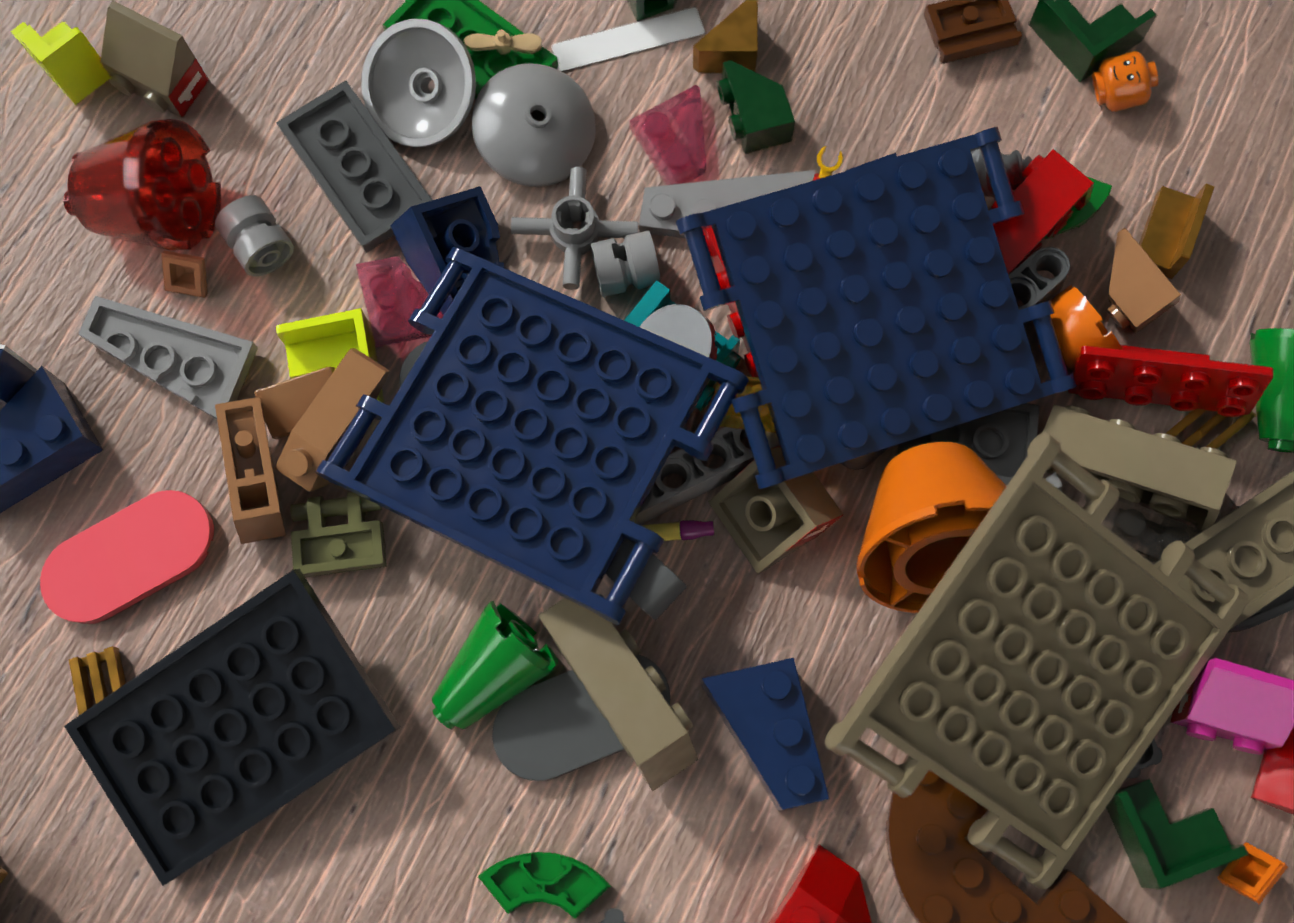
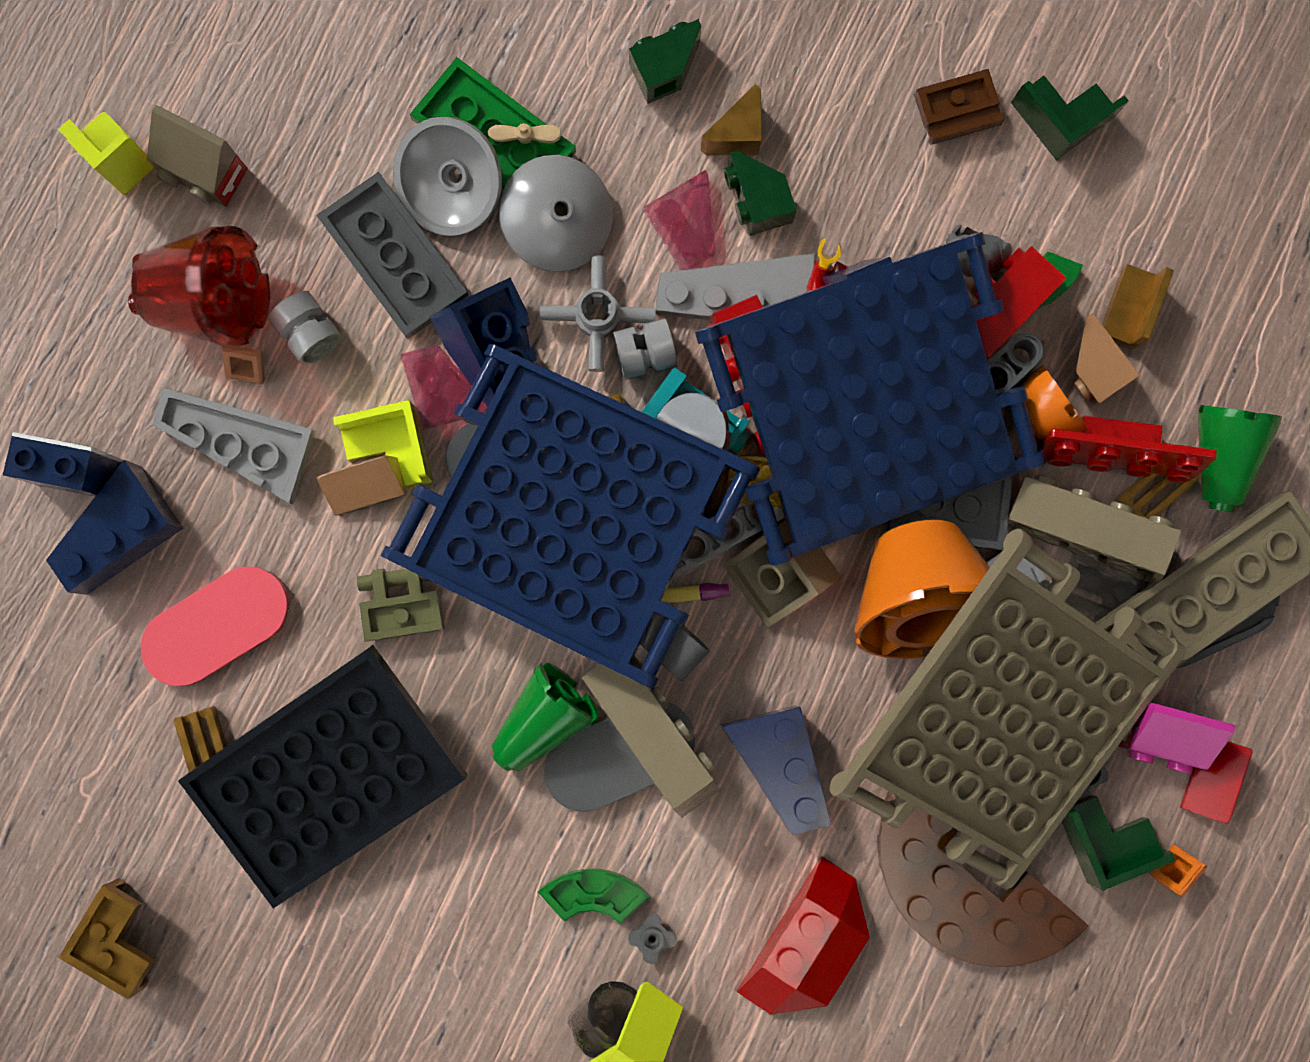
camera: 10 degrees left, 10 degrees up
(249, 470) = (318, 548): medium nougat slope -> none
(328, 418) = (389, 503): medium nougat slope -> none
(628, 39) = (639, 122): white sticker -> none
(1124, 81) = (1097, 163): orange head -> none

